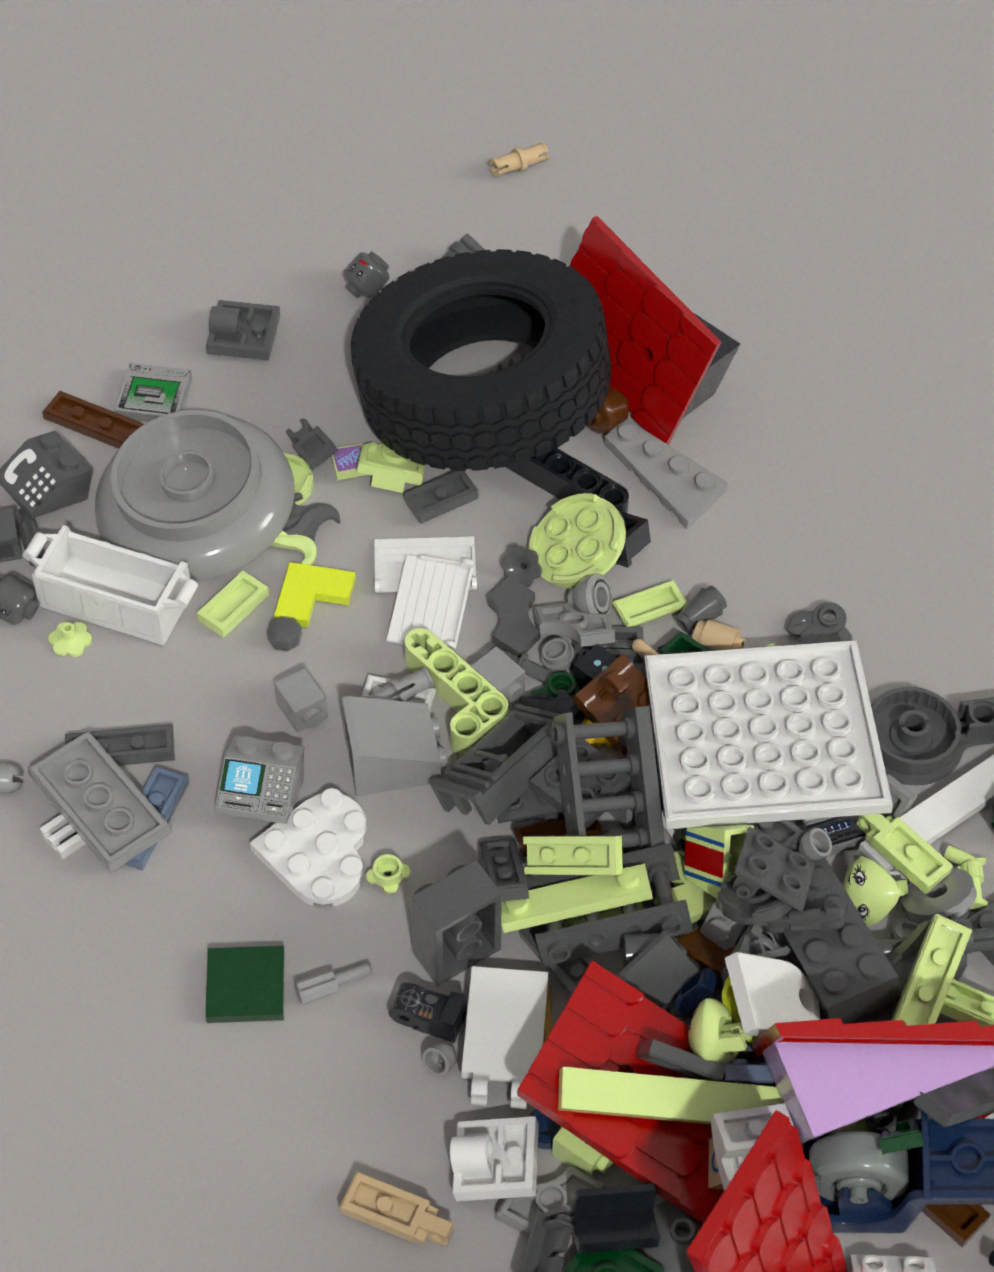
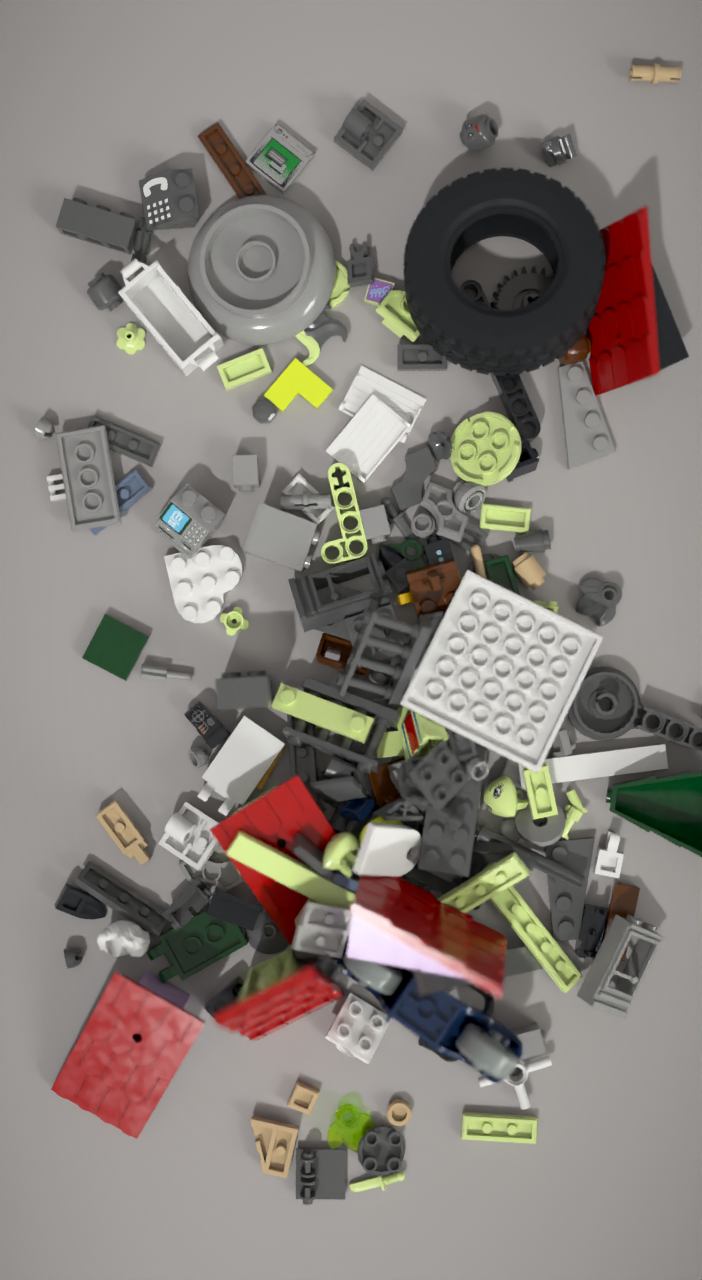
camera: 30 degrees right, 35 degrees up
(504, 867) = (296, 666): dark grey tile -> none
(573, 855) = (335, 690): yellowish green hinge -> none
(906, 1137) = (396, 981): dark green tile -> none

